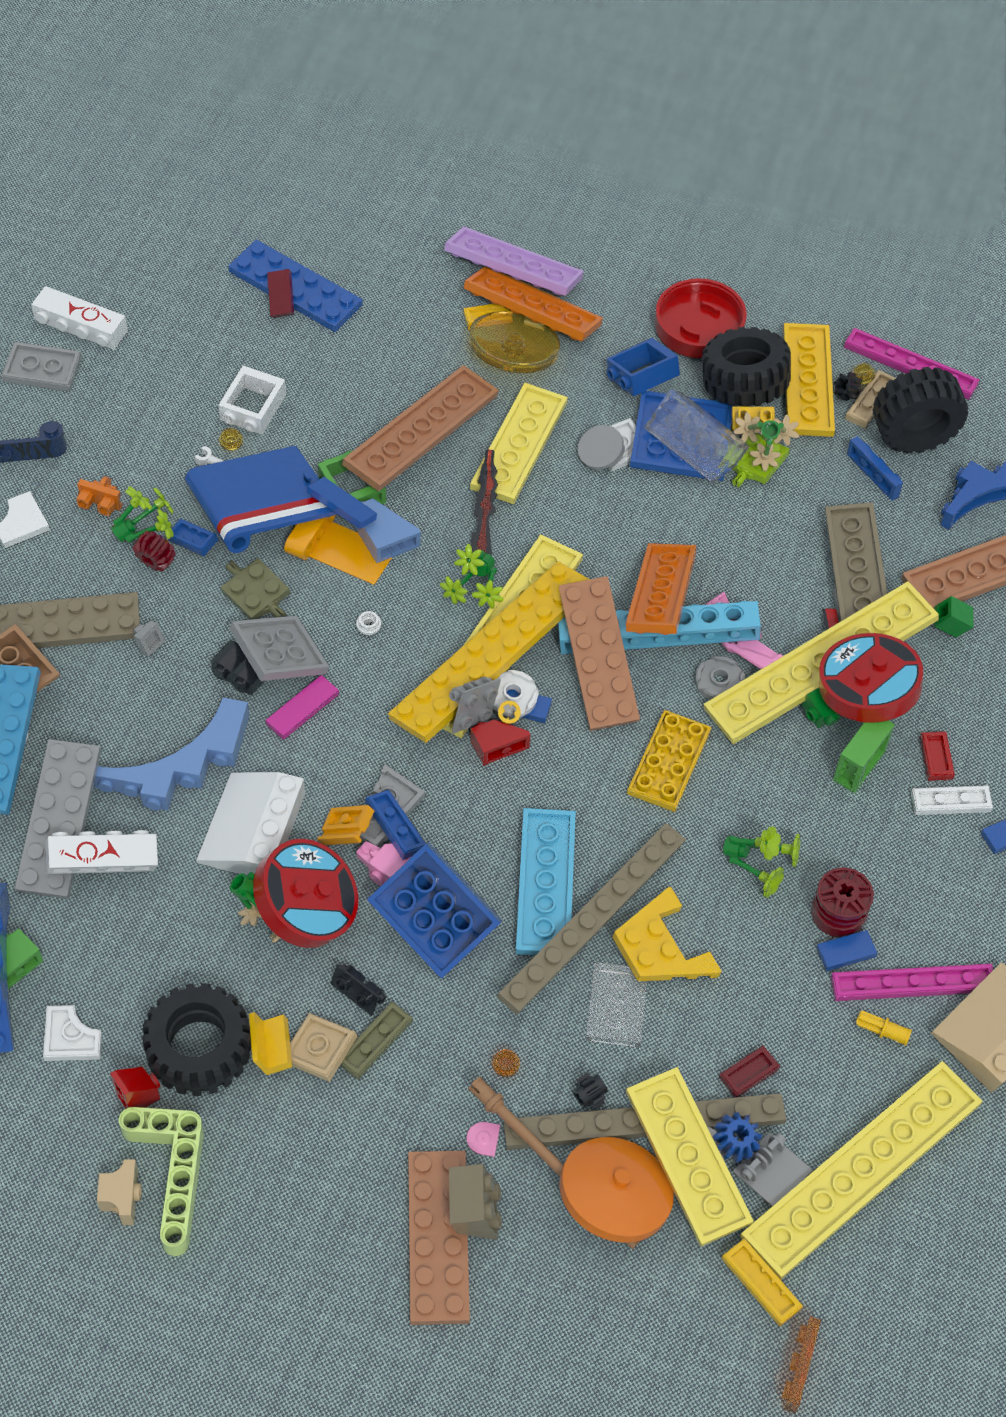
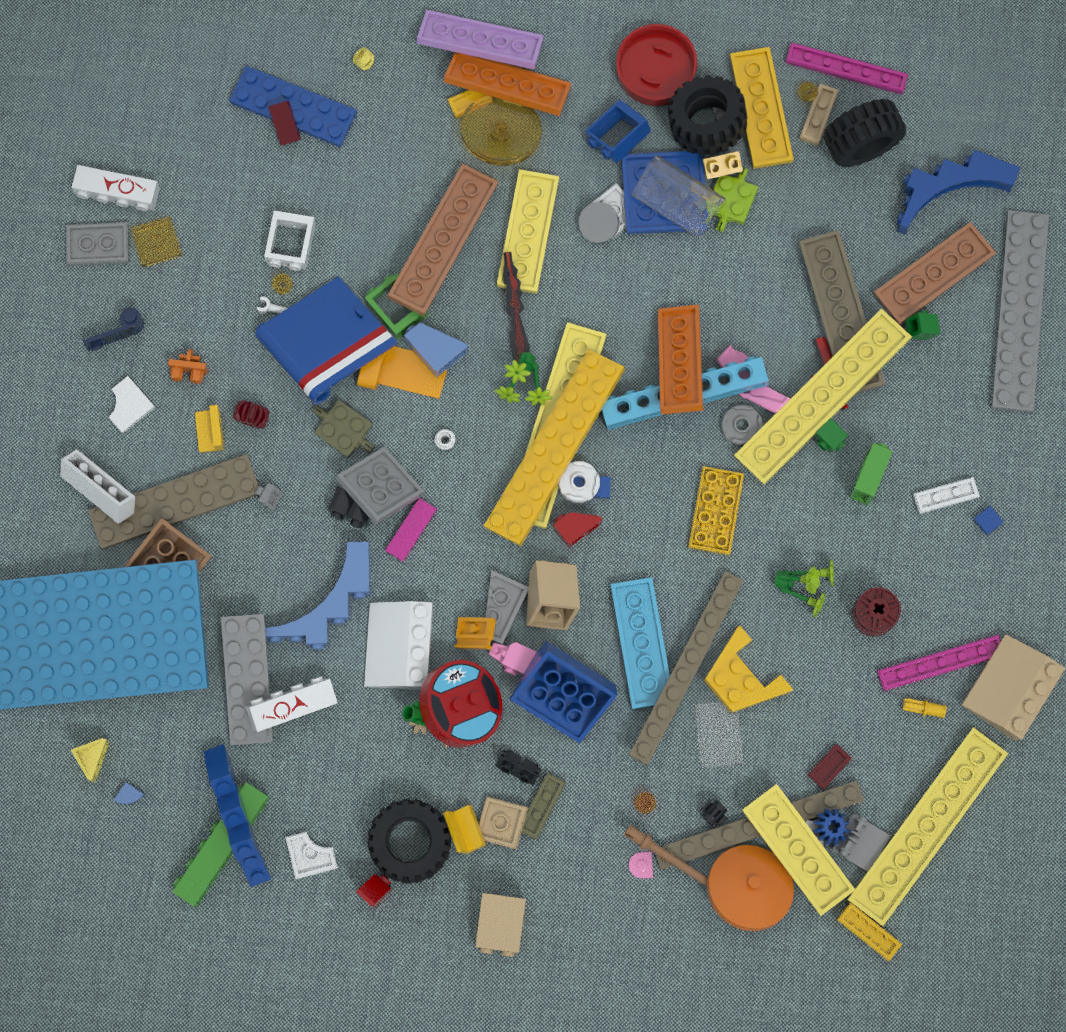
camera: 10 degrees left, 20 degrees up
(104, 561) = (209, 430): none -> yellow panel
(106, 376) = (156, 241): none -> clear yellow tile
(120, 1191) = (386, 972): tan brick -> none
(125, 529) = (220, 394): plant -> none
(178, 1169) = (422, 944): yellowish green beam -> none
(193, 537) = (277, 390): blue plate -> none
(284, 1161) = (500, 924): none -> tan slope
(342, 503) = (396, 336): blue tile -> none
(383, 253) = (363, 58): none -> light yellow tile
(395, 823) = (514, 625): blue tile -> none
(436, 1251) = (626, 950): nougat plate -> none
(450, 804) = (552, 595): none -> tan slope
(474, 1201) = (648, 923): dark tan slope -> none
(475, 702) = (551, 502): light grey hinge -> none
(517, 713) = (581, 510): yellow bush -> none
(599, 653) = (641, 431): nougat plate -> none
(769, 431) = (742, 190): tan plant -> none
(800, 1364) = (908, 987): clear orange plate -> none
(846, 950) = (885, 648): blue tile -> none
(848, 386) = (797, 104): black gear -> none
(871, 677) = (867, 412): brick -> none
(875, 468) = (834, 189): blue plate -> none
(937, 756) = (928, 457): red tile -> none

